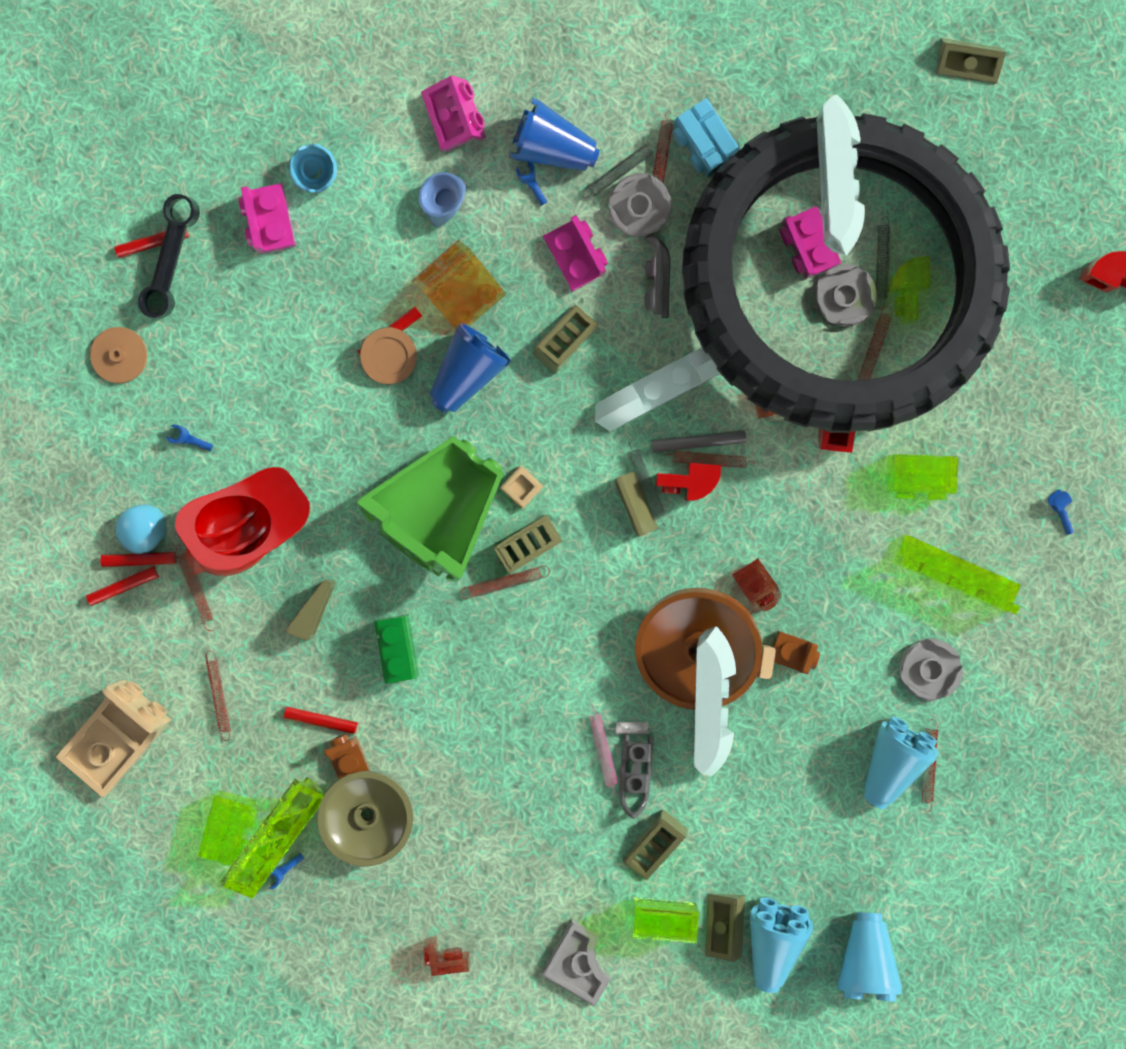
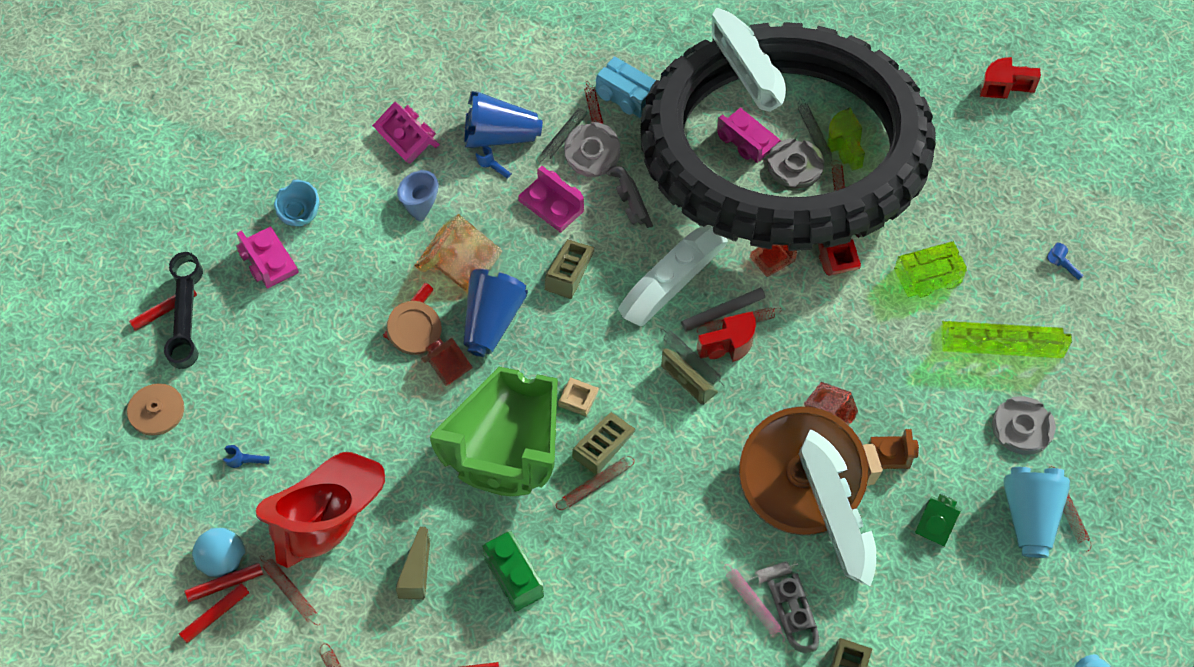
camera: 25 degrees left, 30 degrees down
(407, 404) = (447, 360): none -> clear red bracket
(805, 735) = (938, 519): none -> green bracket

